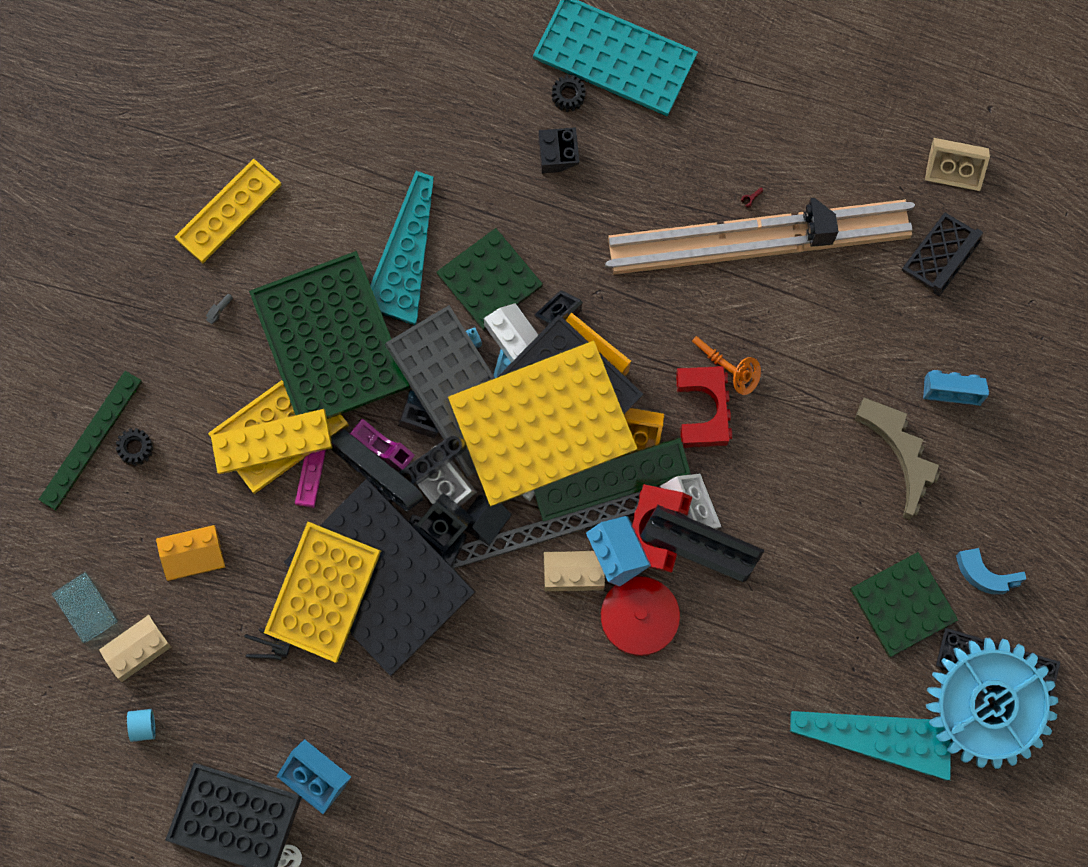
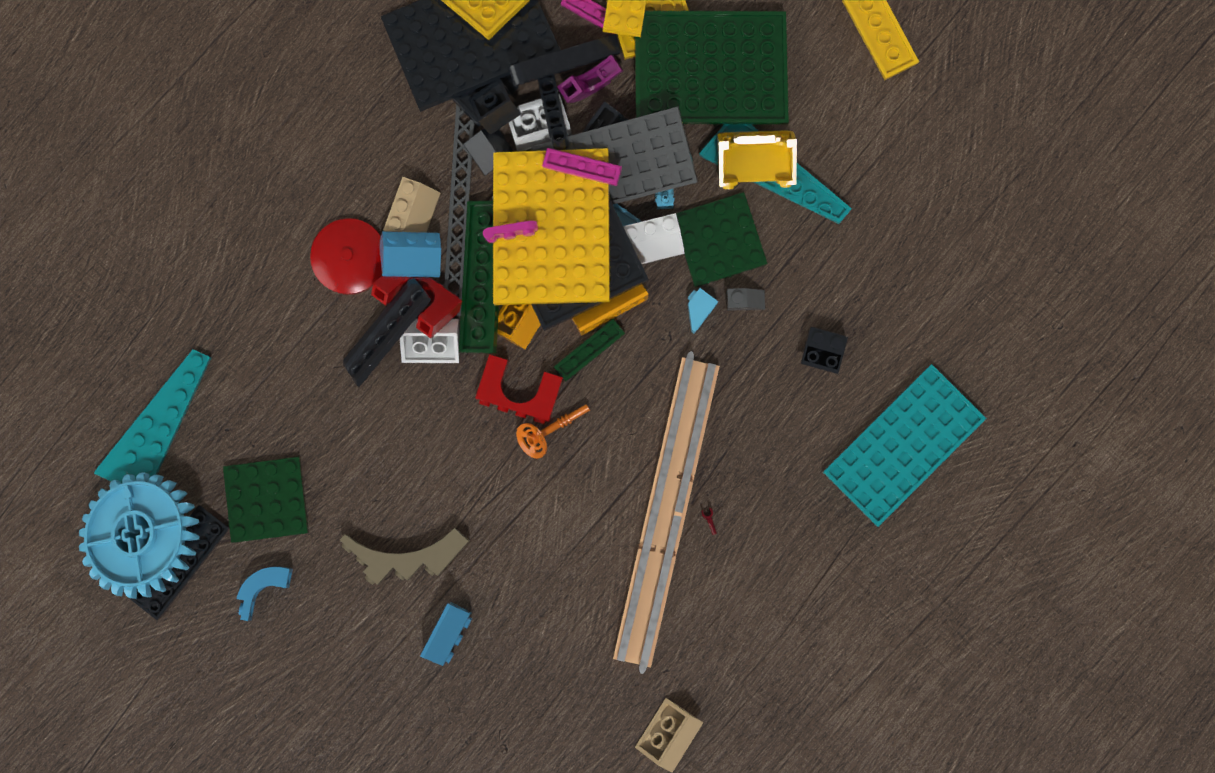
camera: 120 degrees right, 10 degrees up
(399, 265) = (757, 157): none -> yellow windscreen
(475, 411) = (582, 166): none -> dark pink tile
(538, 236) = (745, 299): none -> dark grey slope
(561, 304) = (663, 291): black slope -> none
(563, 271) = (699, 308): none -> medium azure slope
(564, 453) = (510, 231): none -> dark pink plate
(568, 83) = (891, 384): black tyre -> none
(643, 358) = (589, 350): none -> dark green plate
(821, 224) = (649, 568): black slope -> none
(954, 264) = (570, 690): black fence -> none

